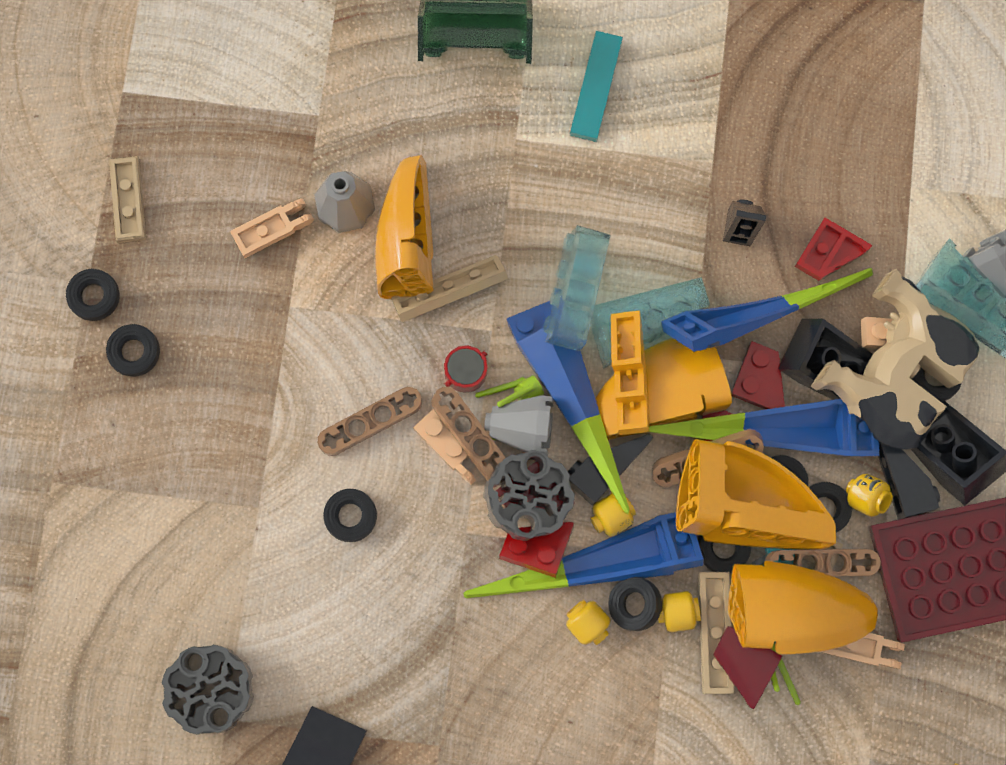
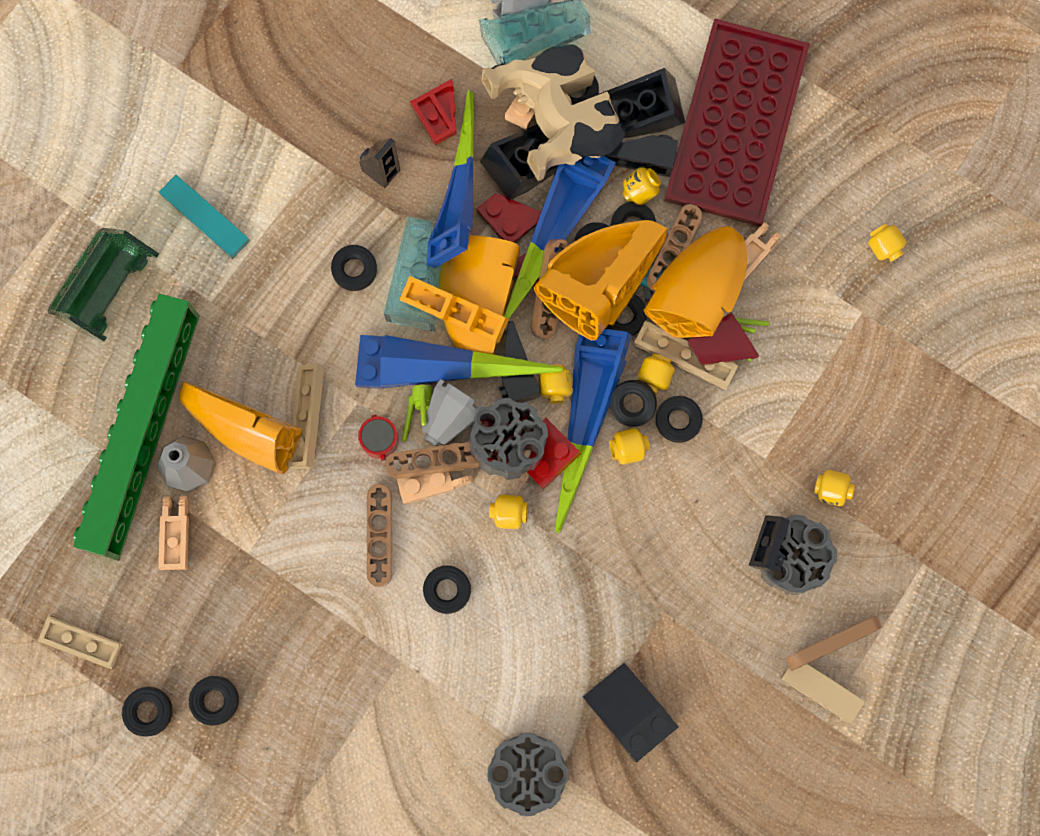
camera: 60 degrees left, 0 degrees up
(353, 137) = (137, 428): none -> green brick
(458, 536) = (509, 511): none -> yellow head
(576, 288) = (363, 314): clear light blue wedge -> none
(641, 251) = (353, 252): none -> black tyre
(663, 655) = (679, 403): none -> black tyre

